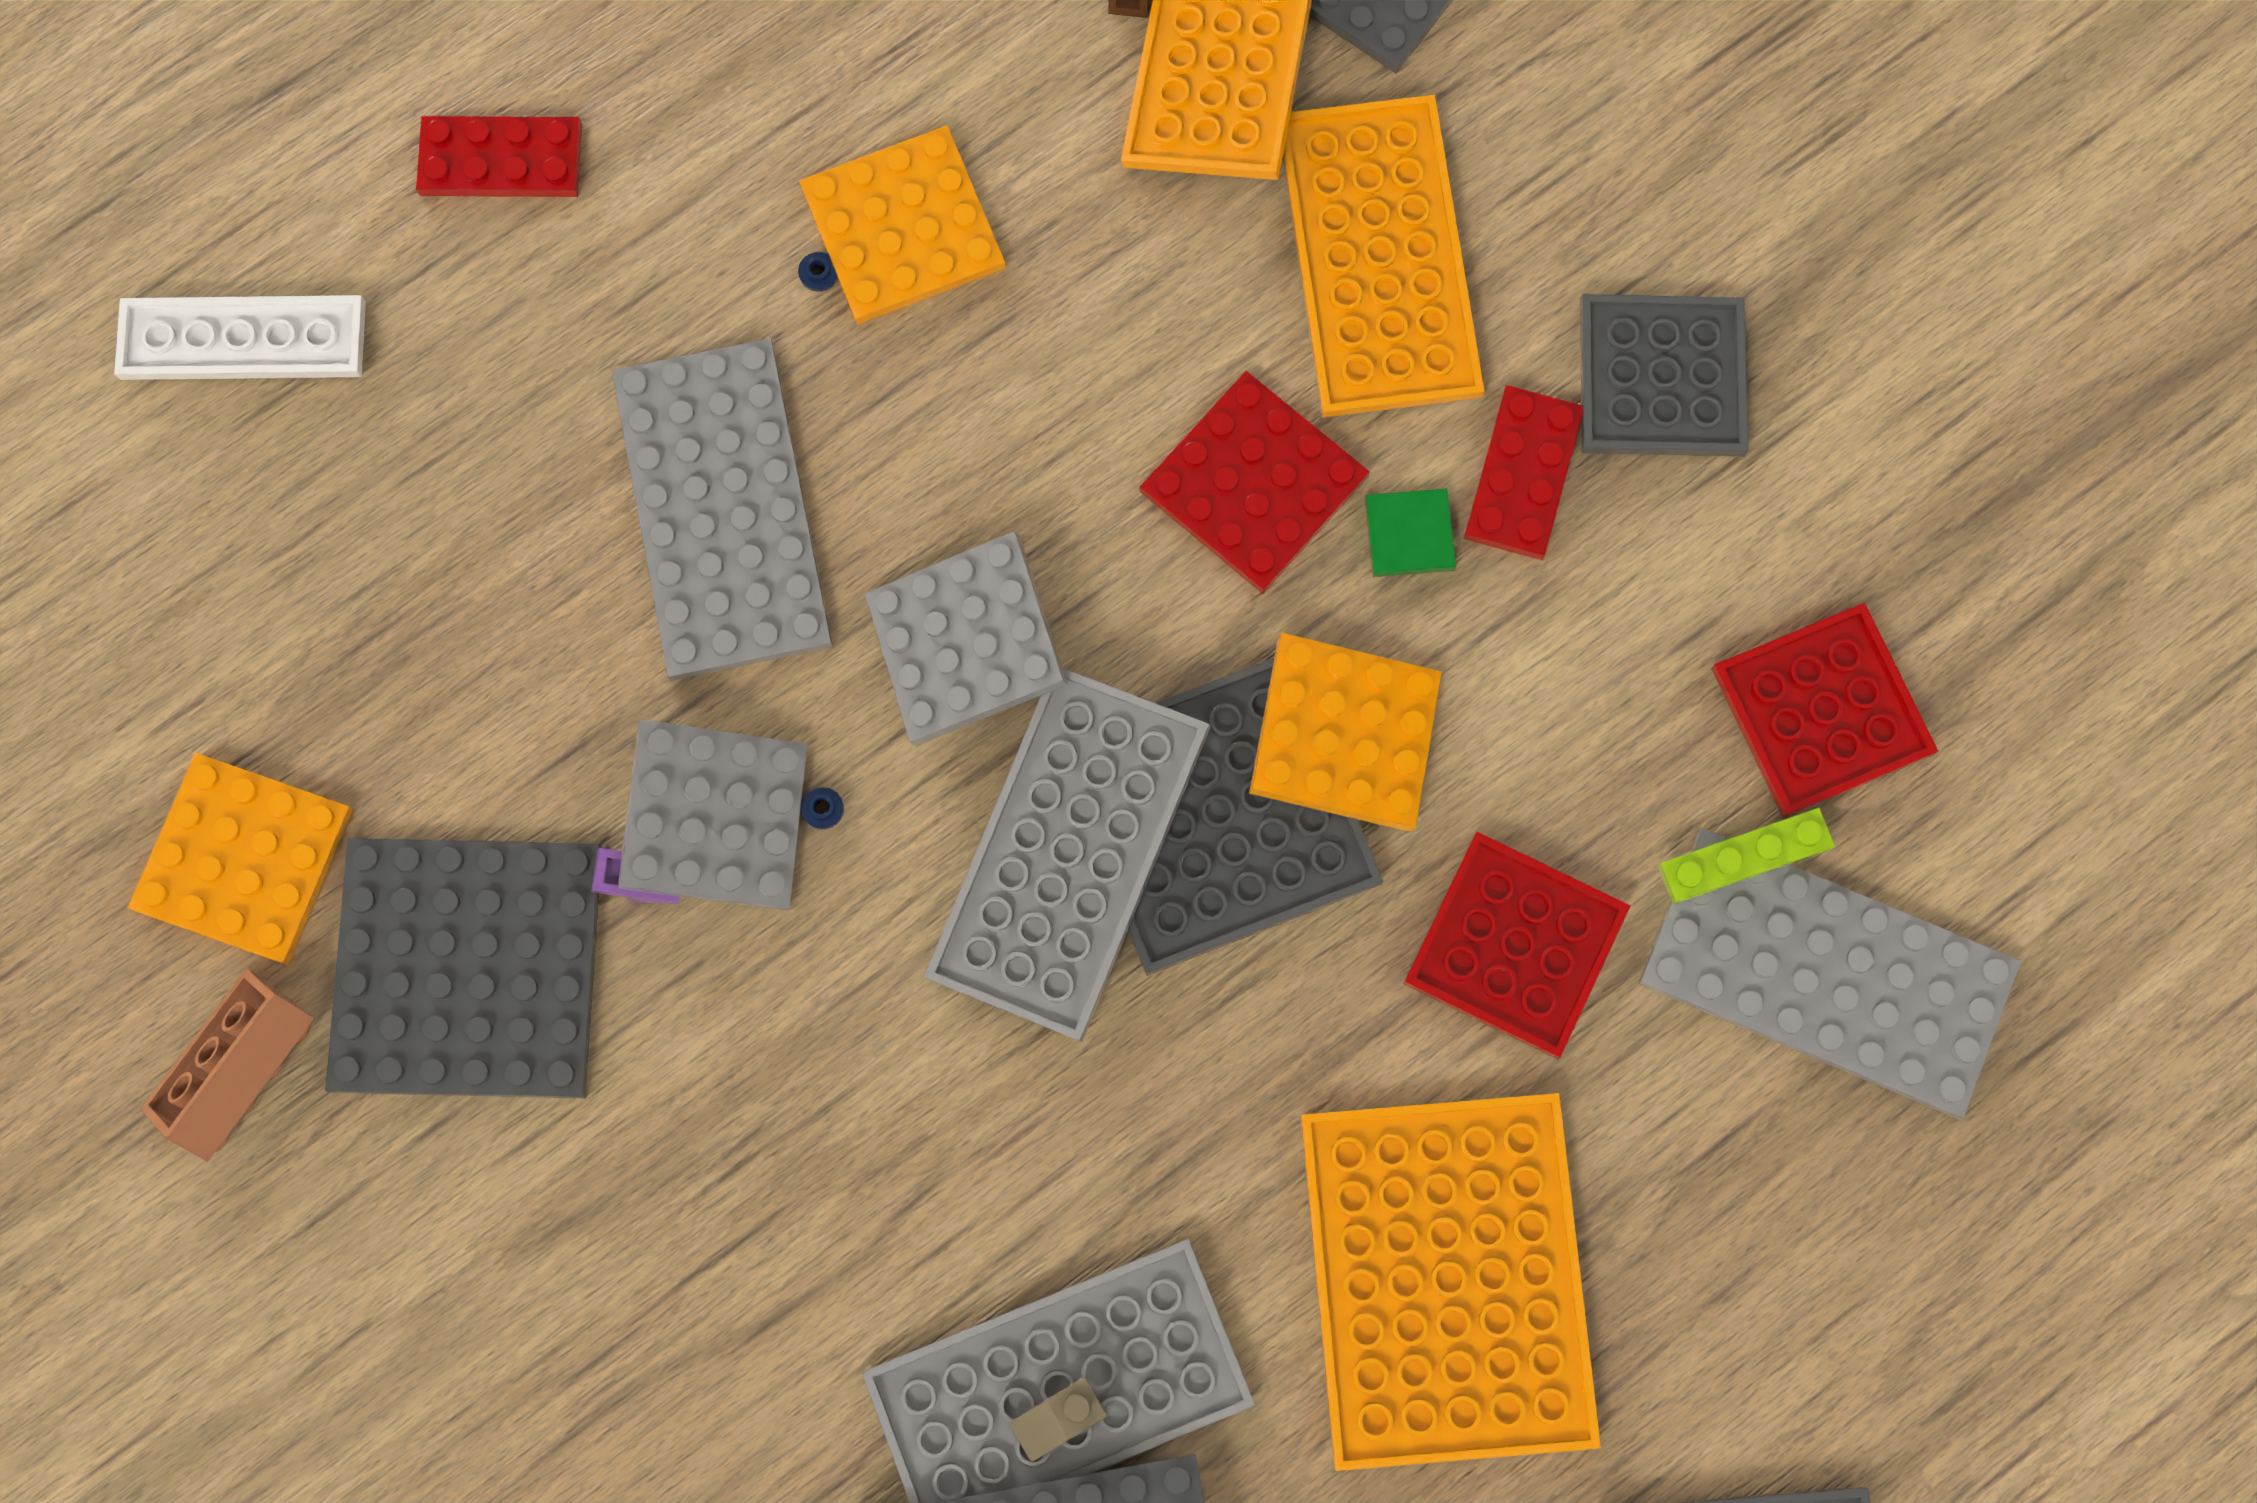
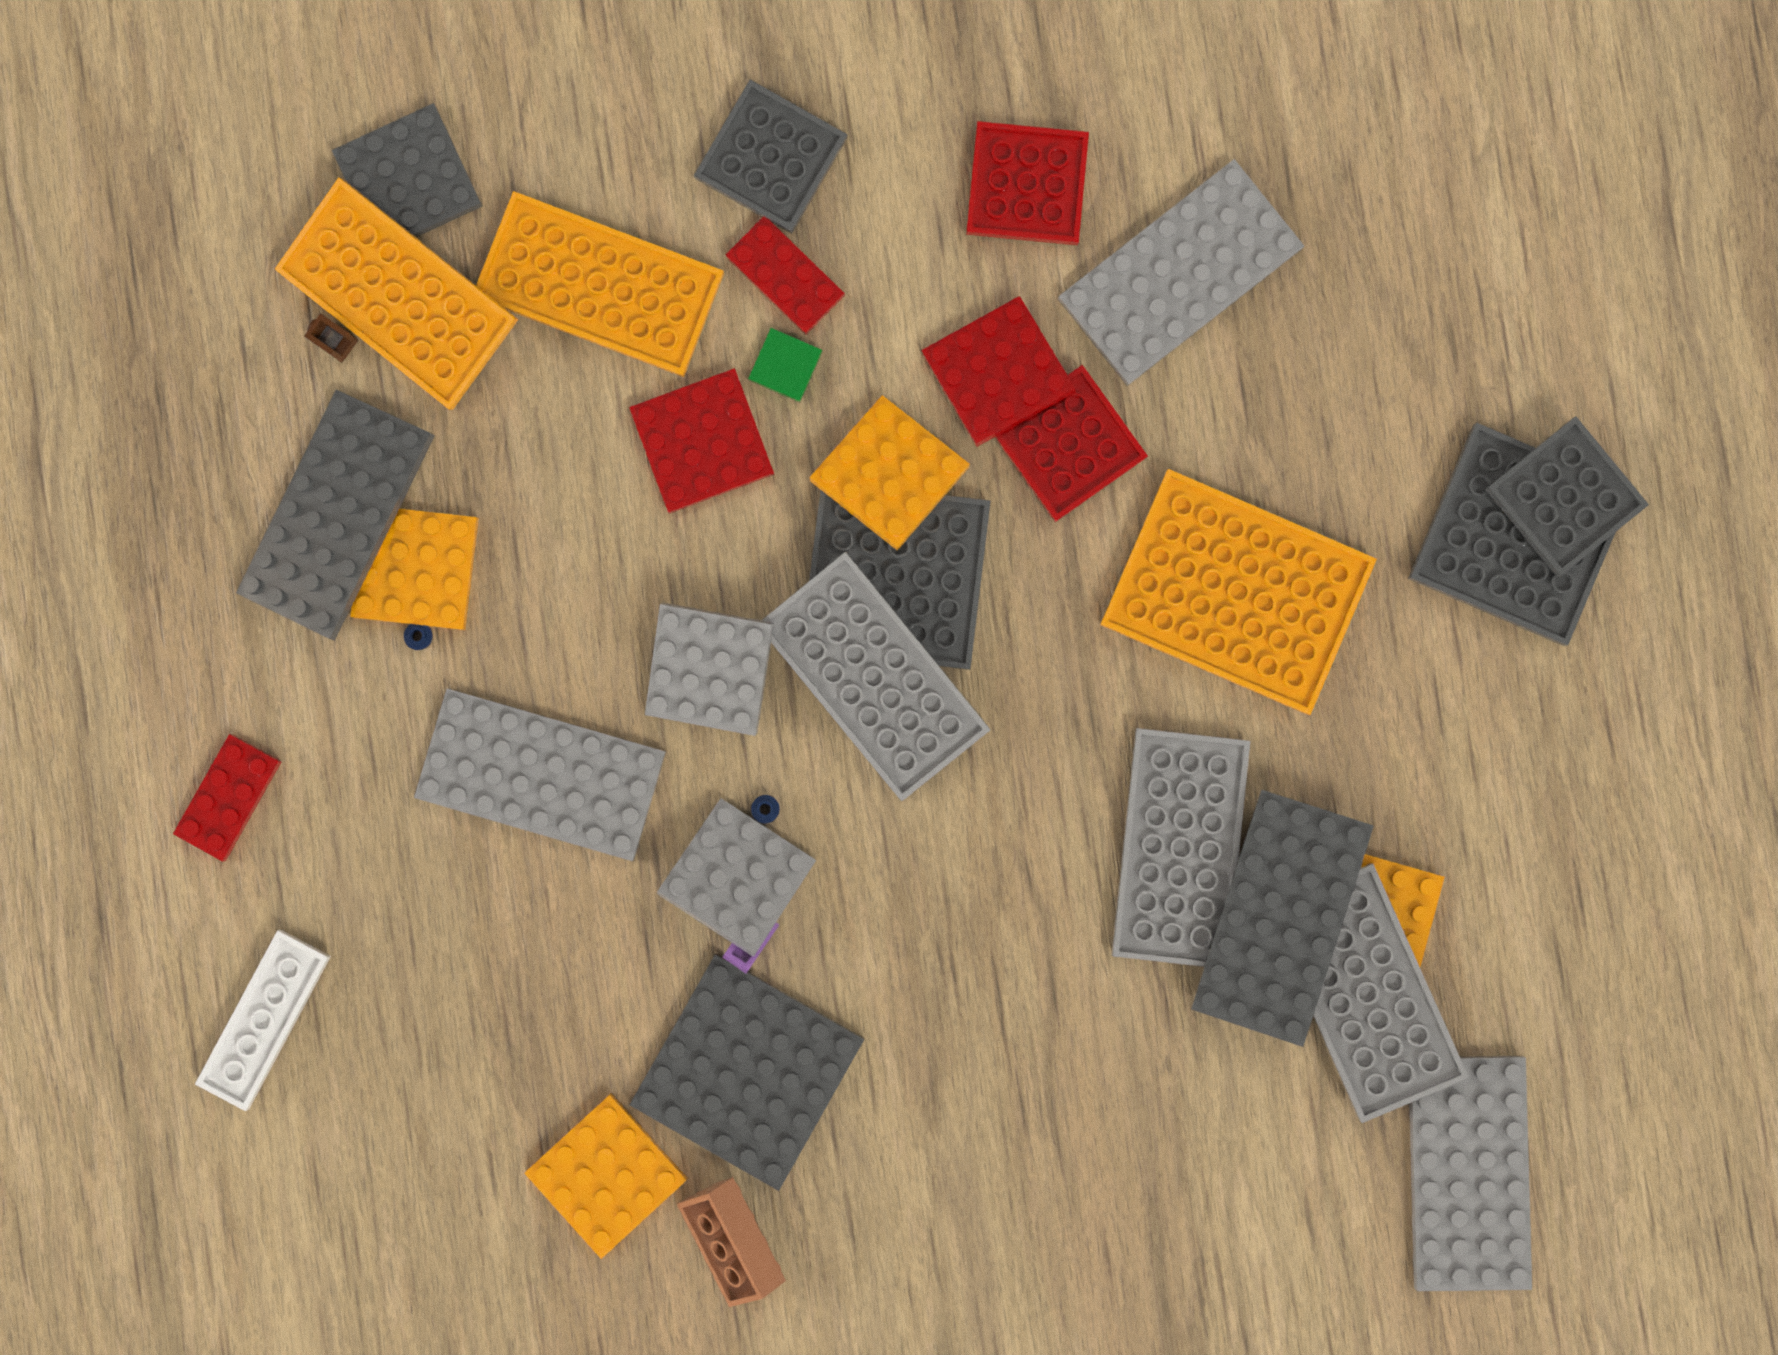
camera: 65 degrees left, 10 degrees up
(915, 98) = (335, 514): none -> dark grey plate
(1058, 1419) = (1201, 856): dark tan slope -> none
(1558, 802) = (998, 371): none -> red plate
(1746, 856) = (1090, 280): lime plate -> none

